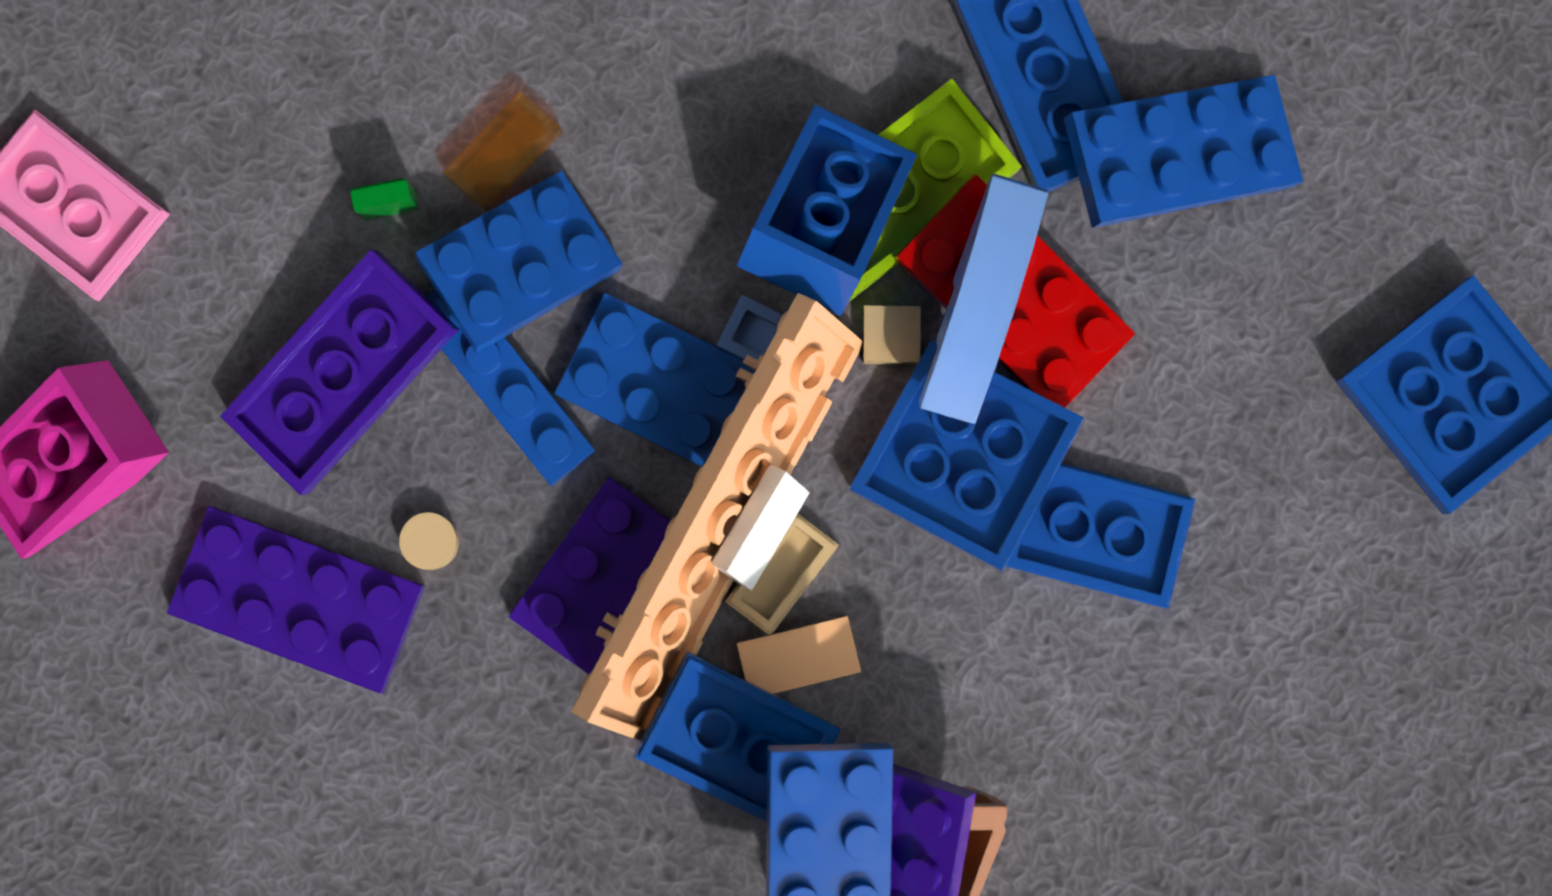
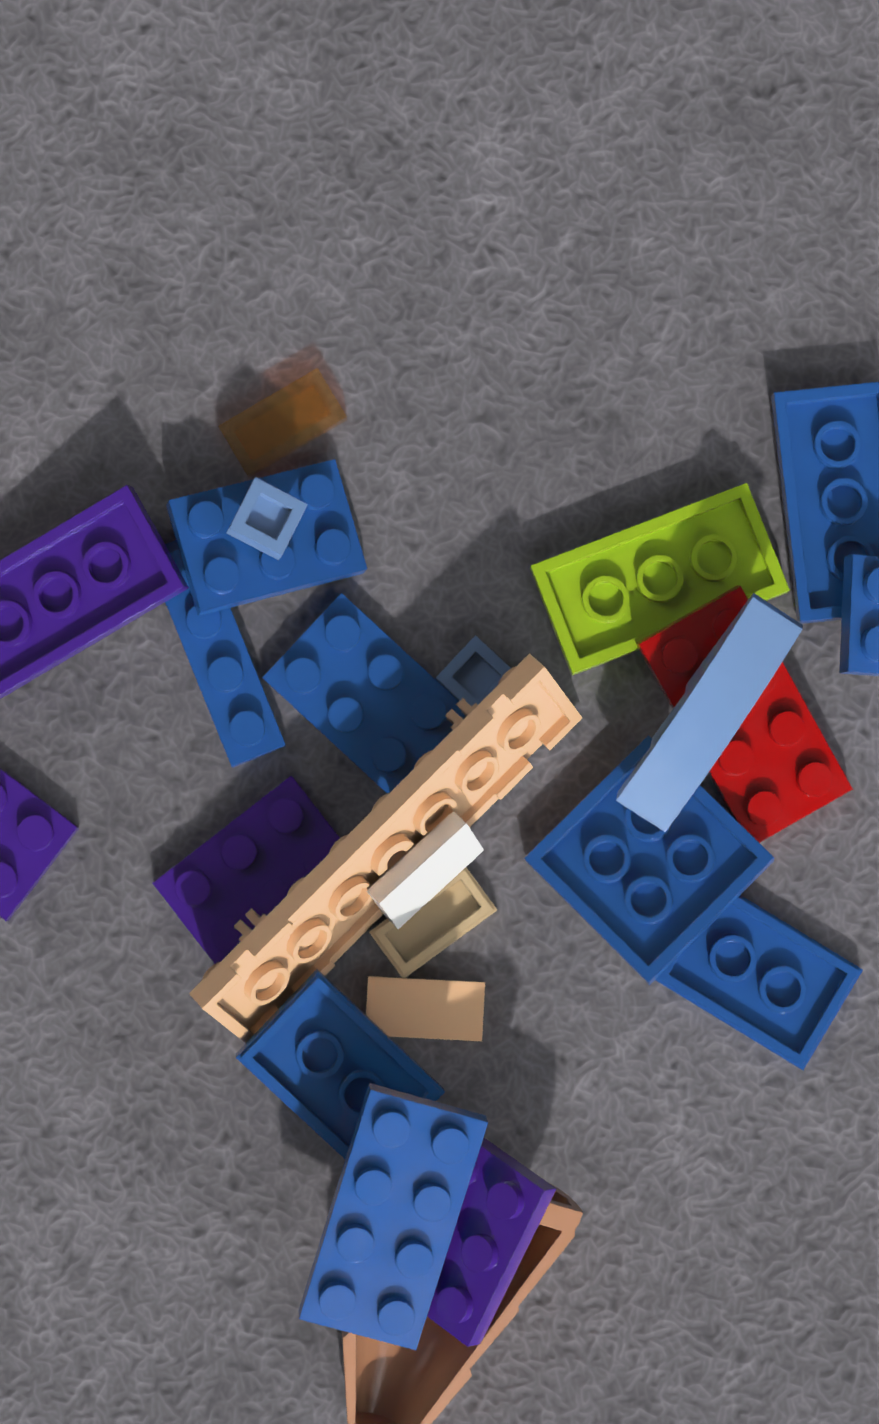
camera: 15 degrees right, 0 degrees up
(384, 199) = (153, 436): green tile -> none
(429, 541) = (96, 785): tan tile -> none
(512, 241) = (267, 518): none -> medium blue plate
(827, 210) = (584, 578): blue slope -> none
(891, 334) = (611, 718): tan tile -> none

